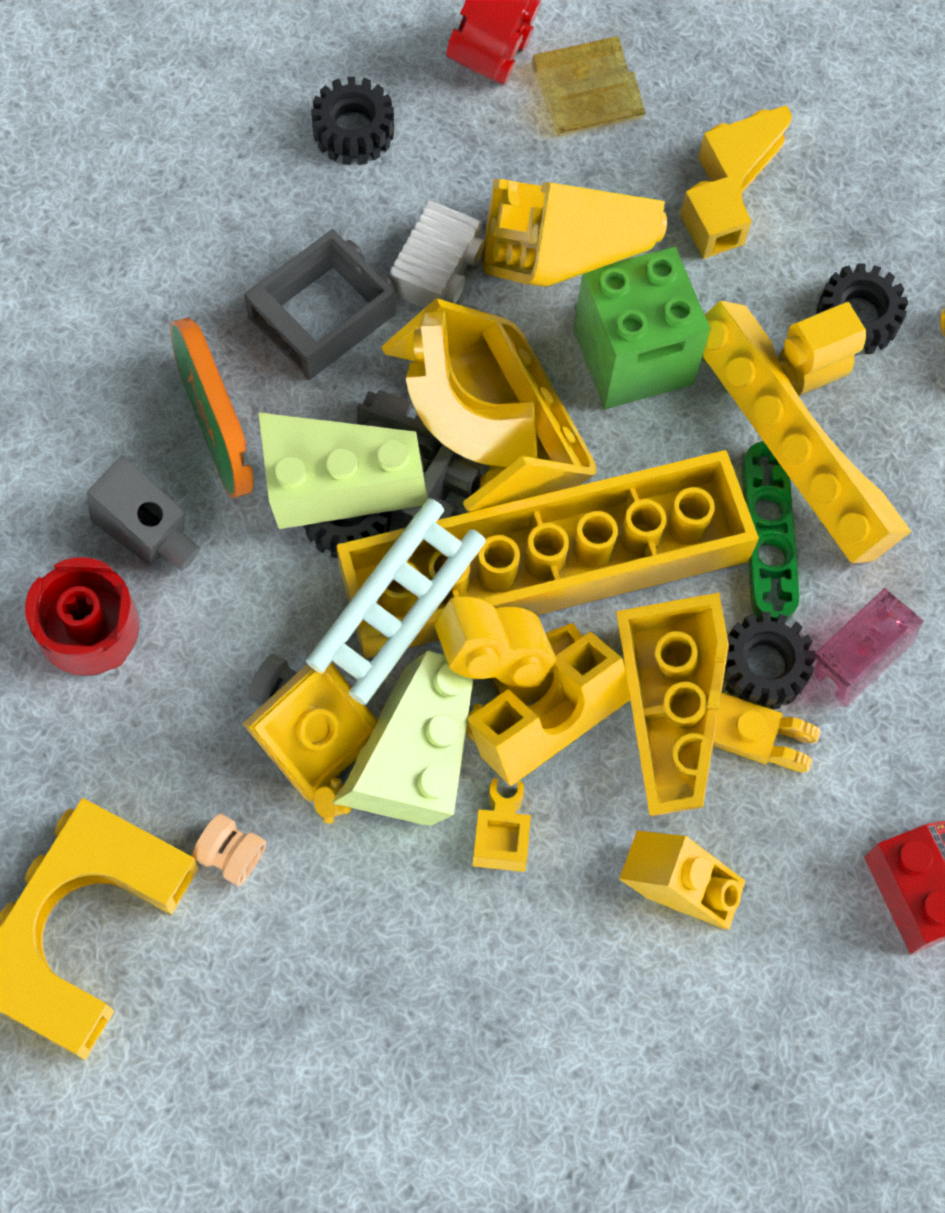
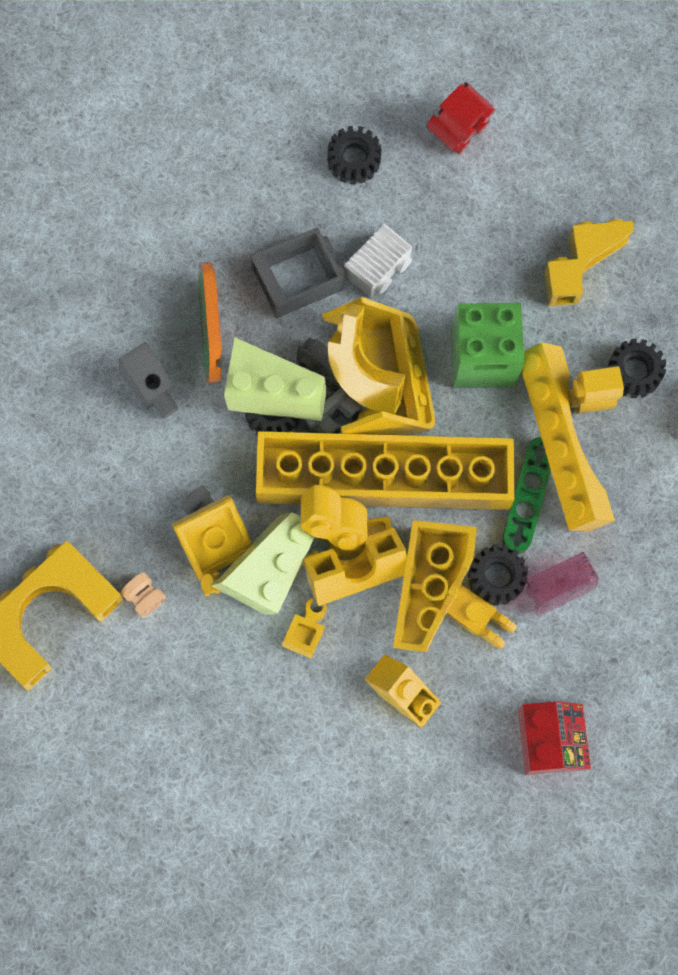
camera: 15 degrees right, 5 degrees up
(58, 620) = (89, 417): red brick -> none
(364, 605) = (277, 496): light aqua bar -> none
(564, 230) = (457, 270): yellow windscreen -> none
(588, 86) = (512, 170): clear yellow slope -> none

